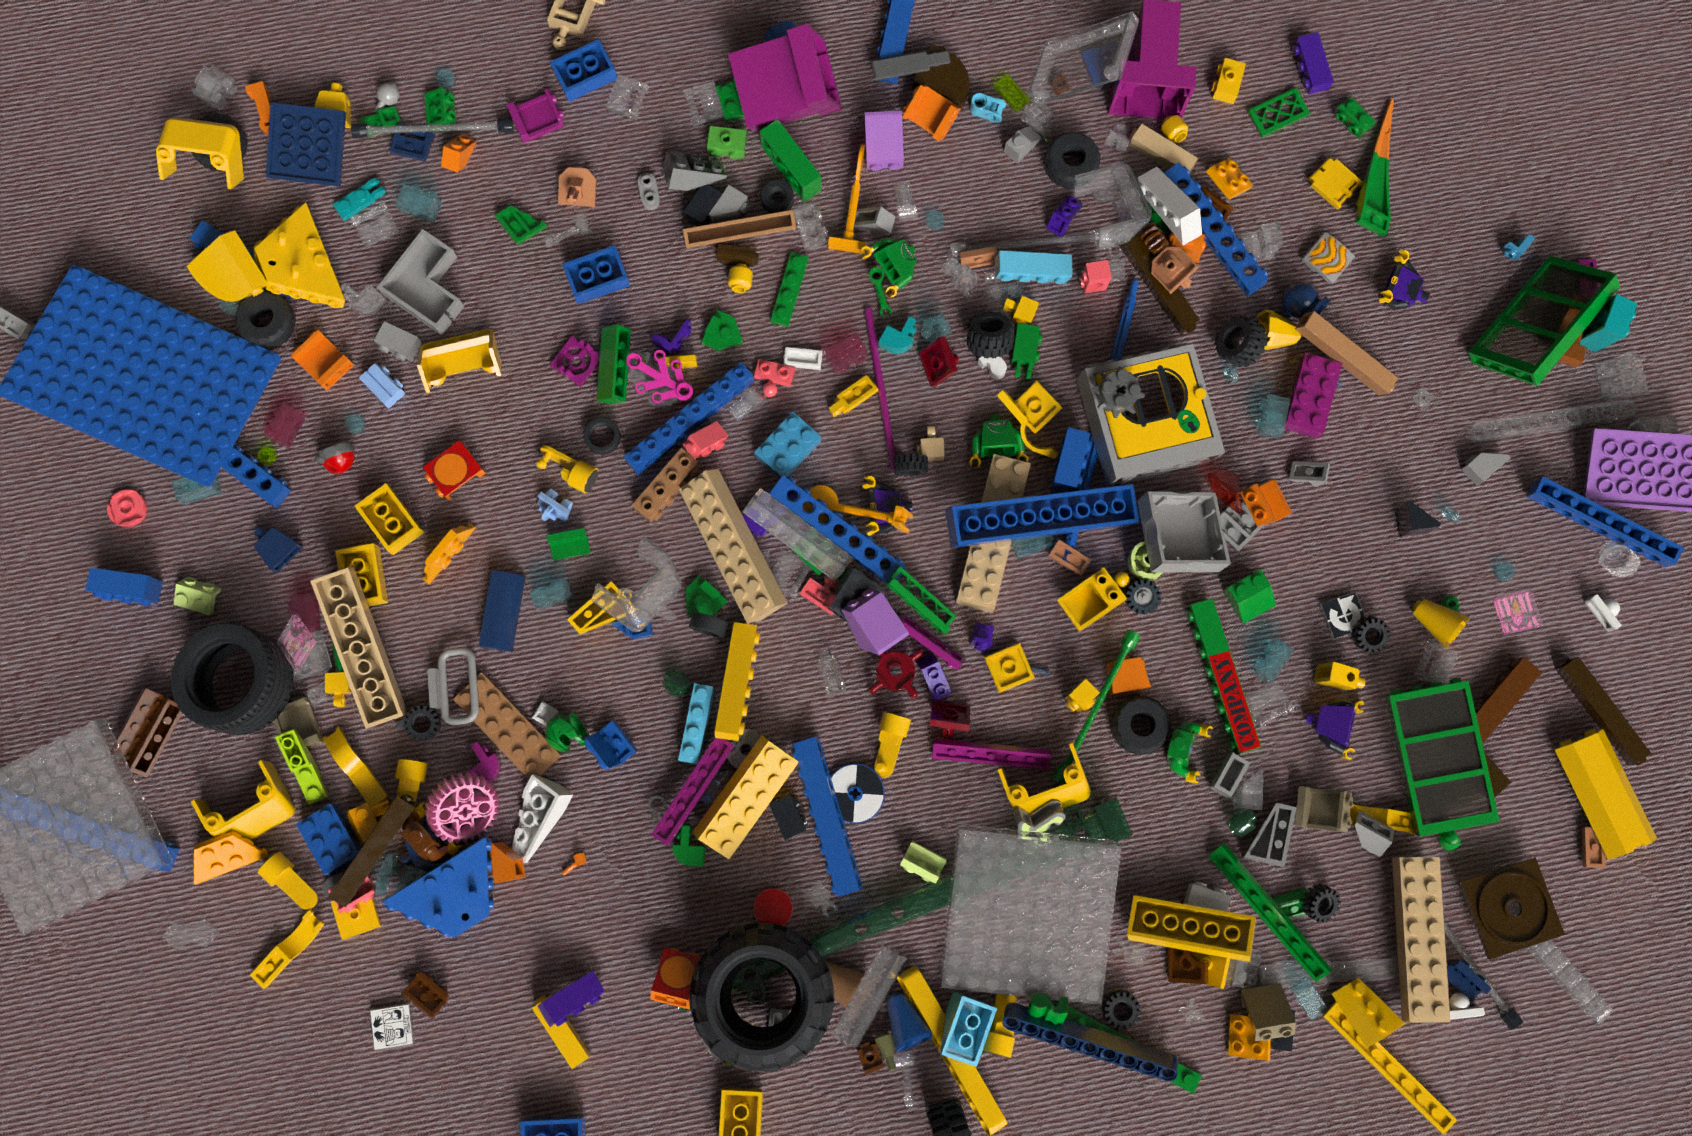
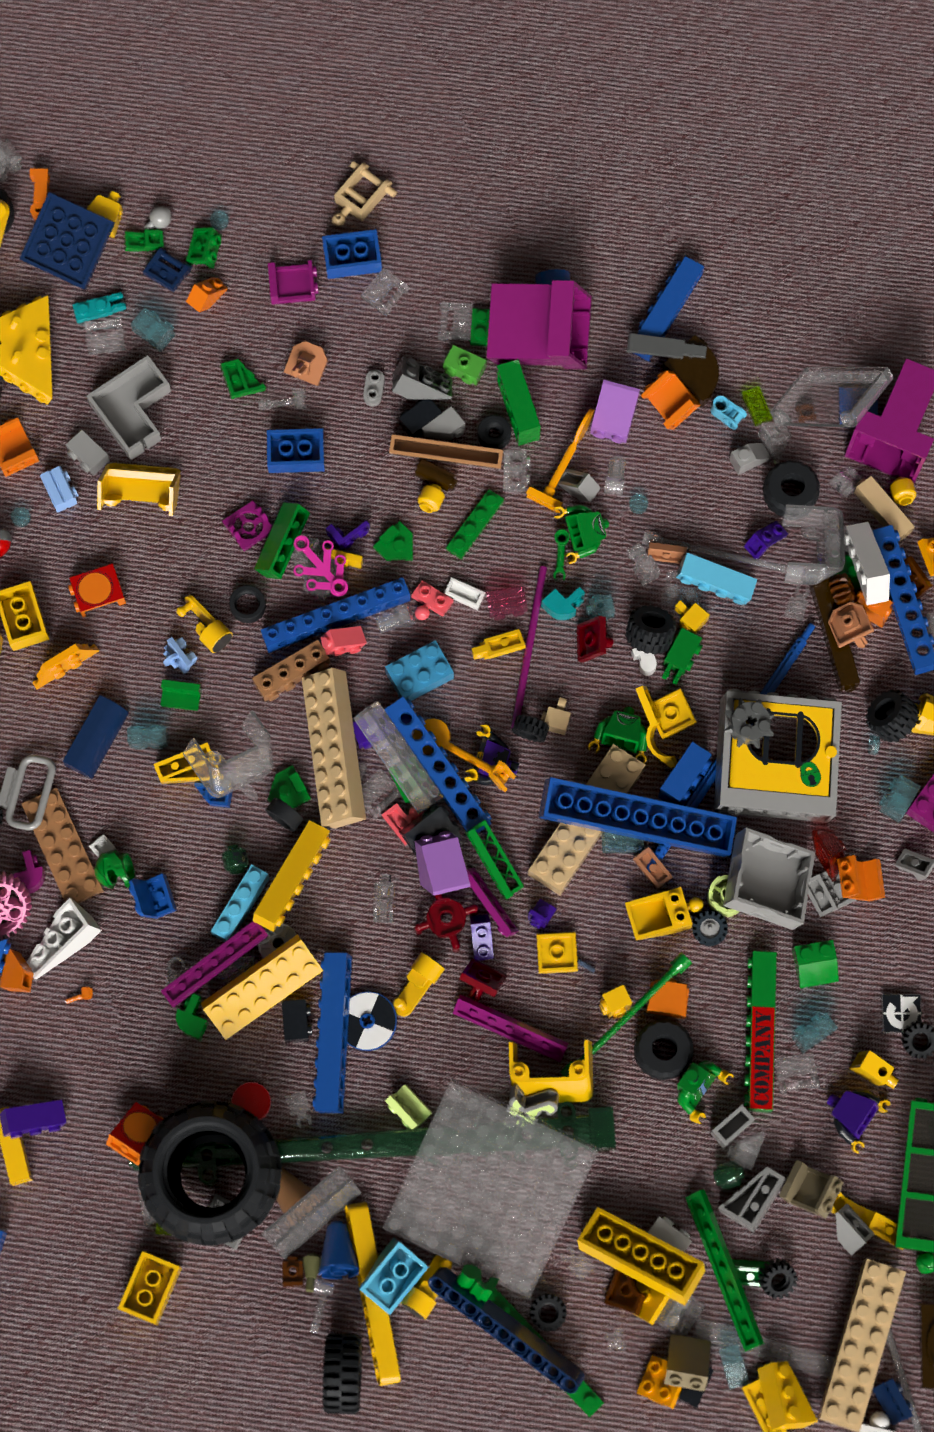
camera: 20 degrees right, 5 degrees down
(361, 130) = (256, 281): clear hose -> none
(366, 302) = (72, 406): clear brick -> none
(1095, 276) = (772, 607): coral brick -> none

